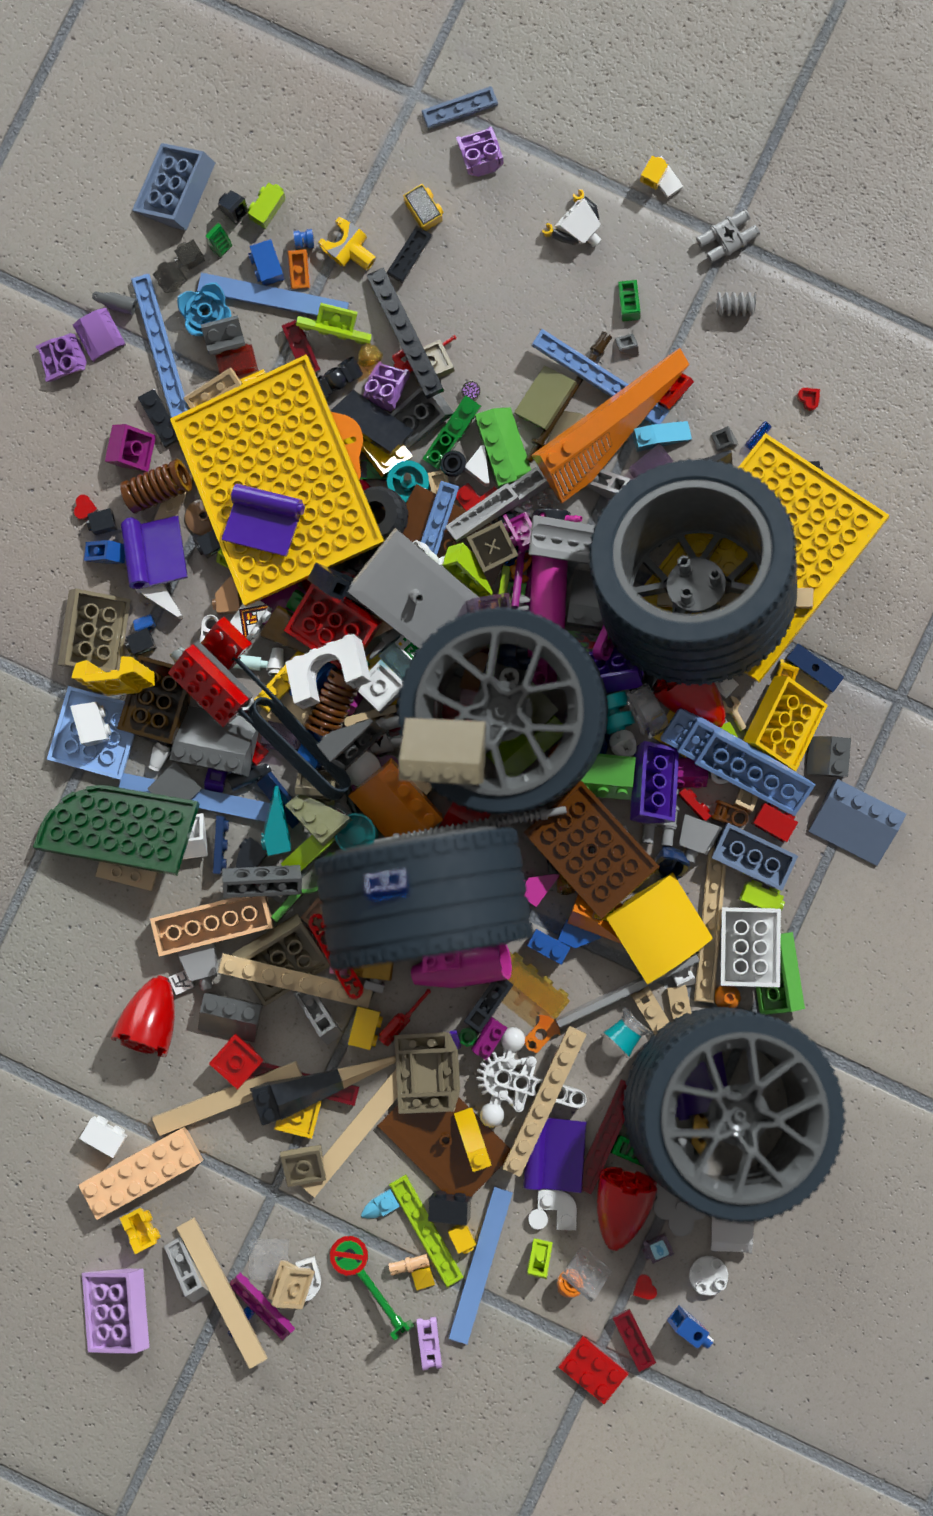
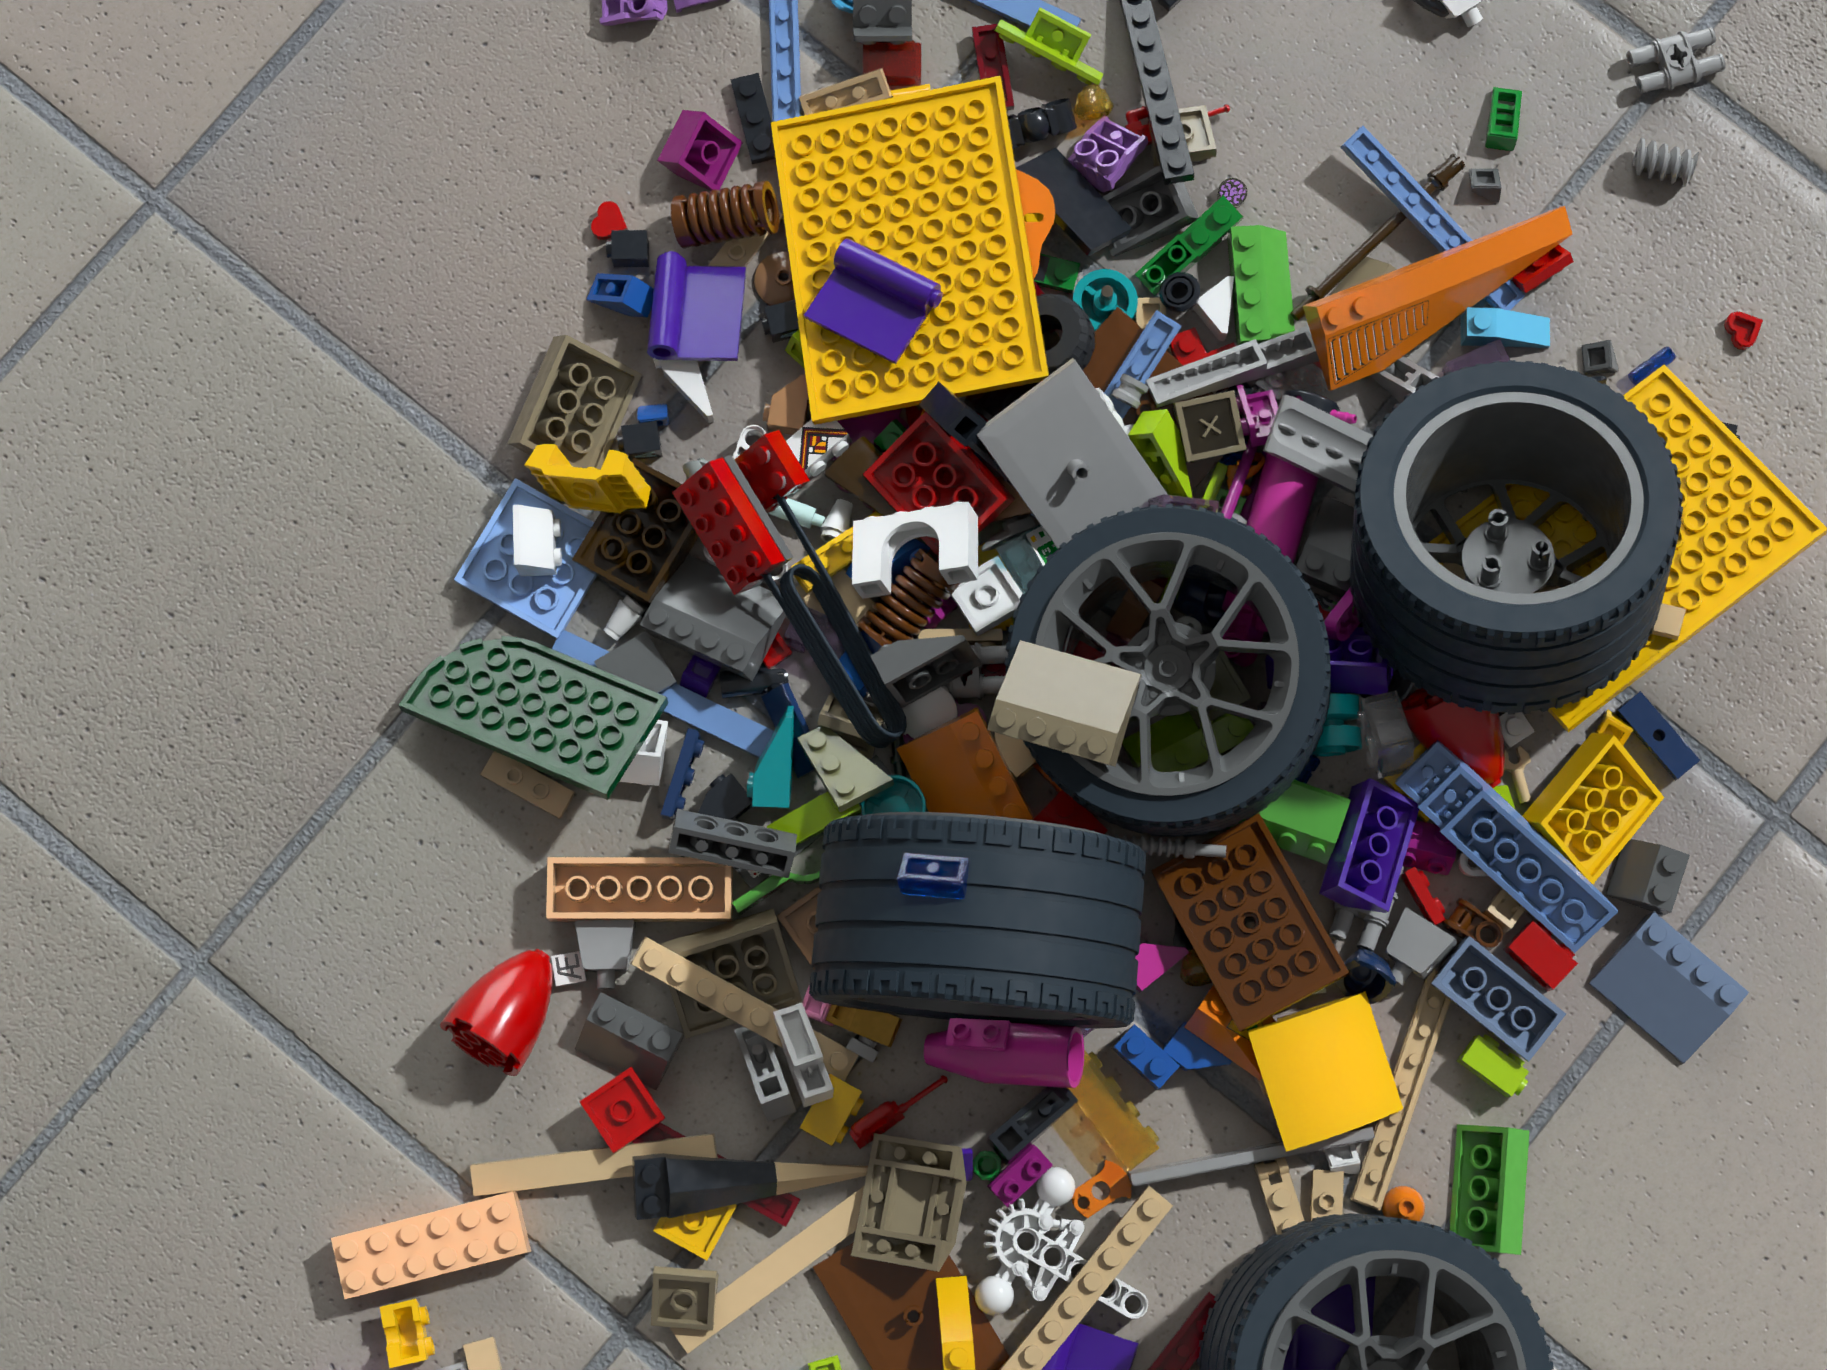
camera: 15 degrees right, 5 degrees down
(104, 1136) = (389, 1174): white brick -> none
(338, 1000) = (803, 1055): none -> white slope
(356, 983) = (811, 1005): red beam -> none
(382, 461) = (1073, 261): yellow plate -> none
(437, 536) = (1130, 391): none -> light grey wheel
(545, 397) = (1342, 230): olive tile -> none
(620, 741) = (1336, 771): white piece -> none
(627, 1032) = (1236, 1220): teal hat -> none
(750, 947) = (1459, 1136): white slope -> none

